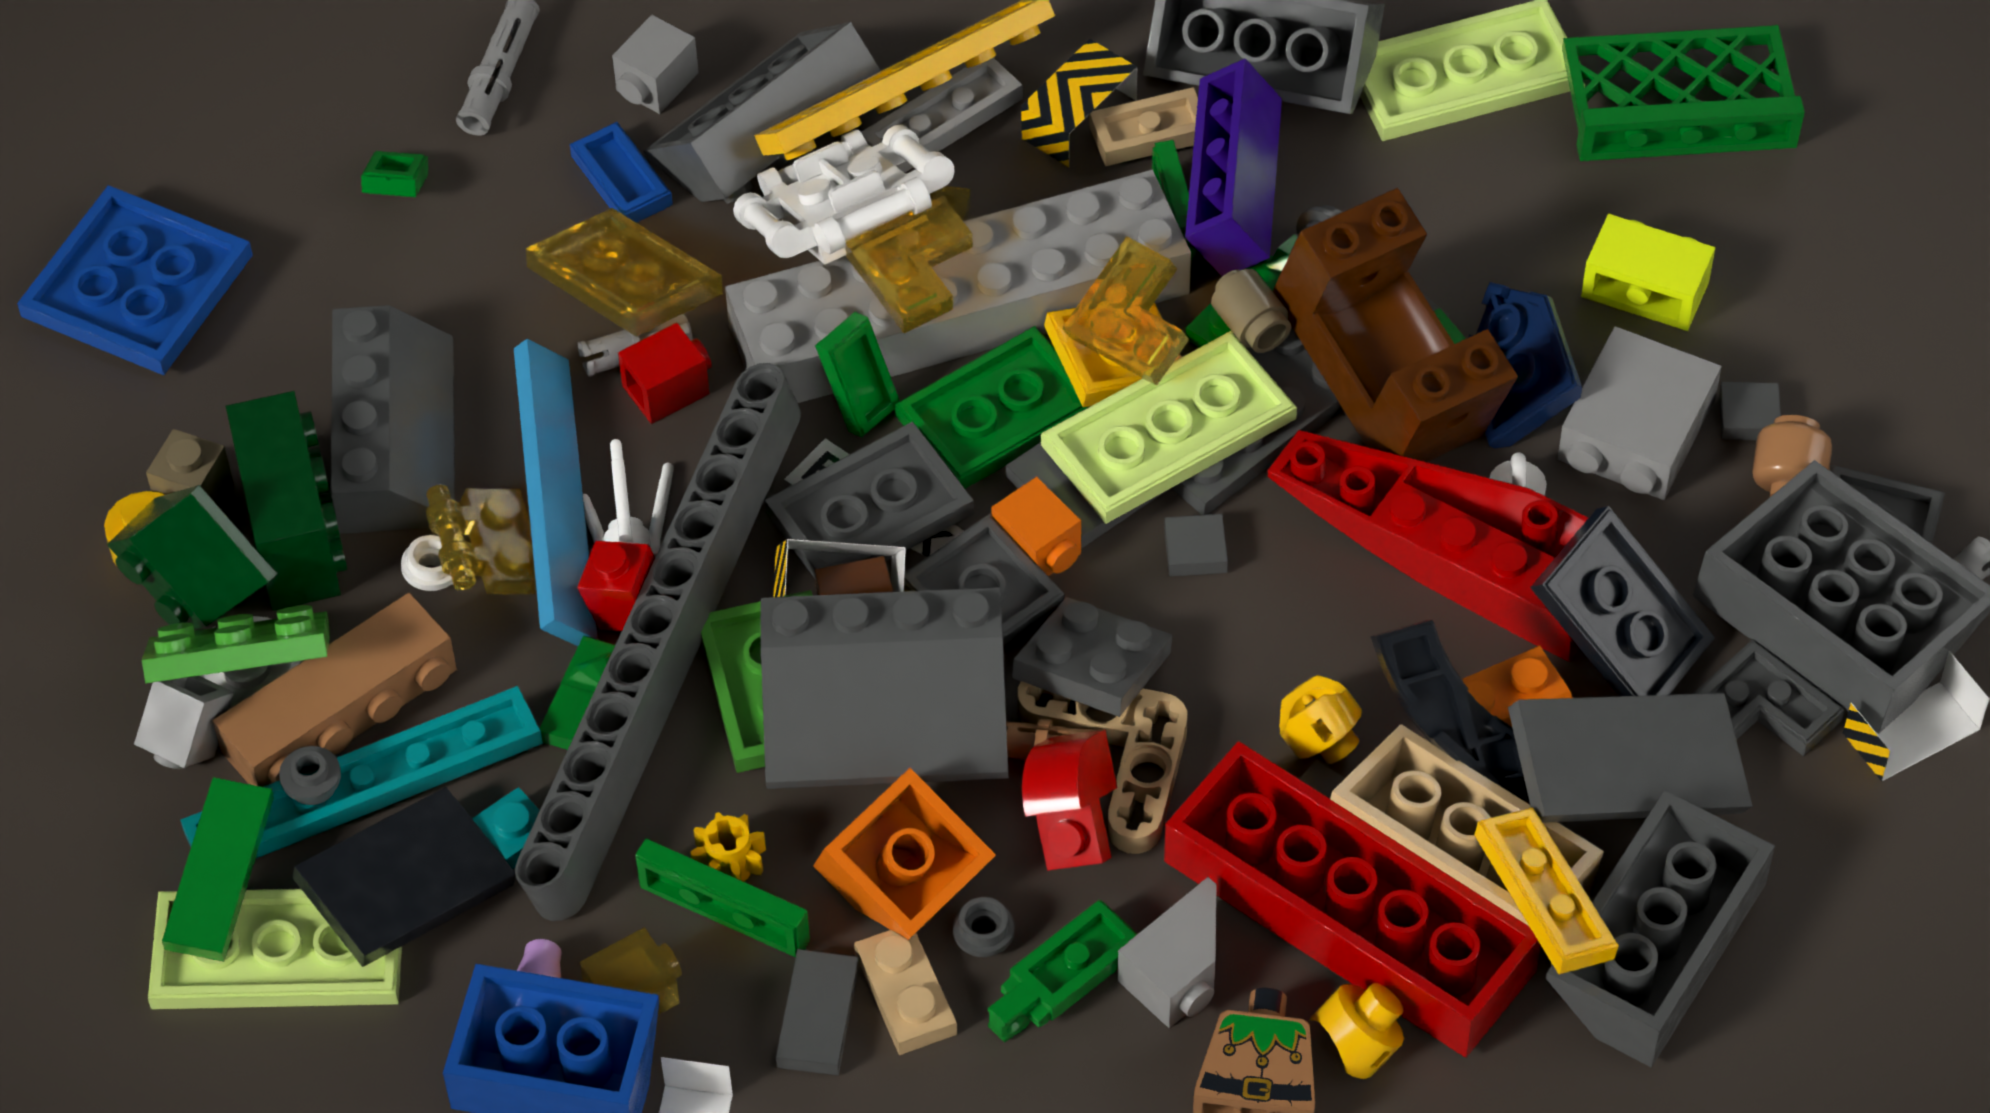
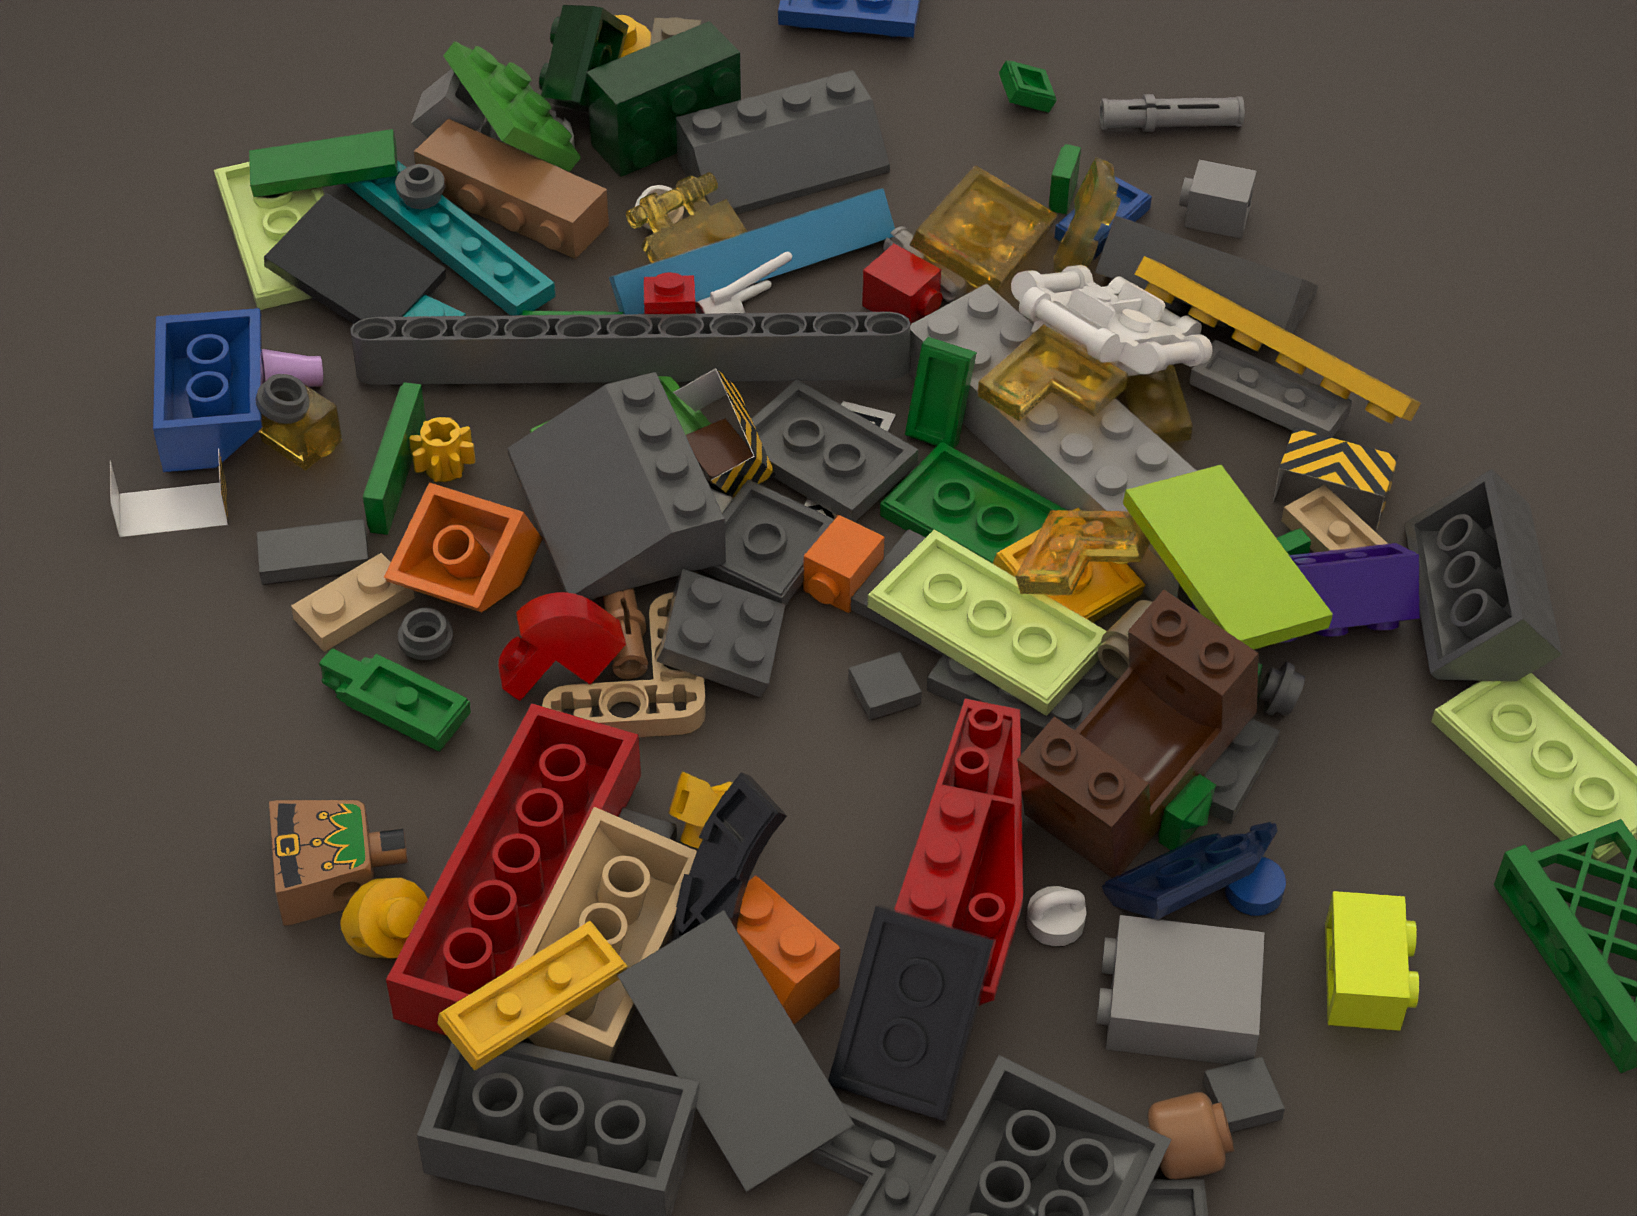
camera: 70 degrees right, 5 degrees down
(564, 184) = (1064, 178): none -> green tile
(635, 965) = (283, 399): none -> dark grey plate
(662, 162) = (1094, 205): none -> clear yellow plate
(1174, 958) = (427, 770): light grey slope -> none
(1217, 194) = (1227, 557): none -> lime tile

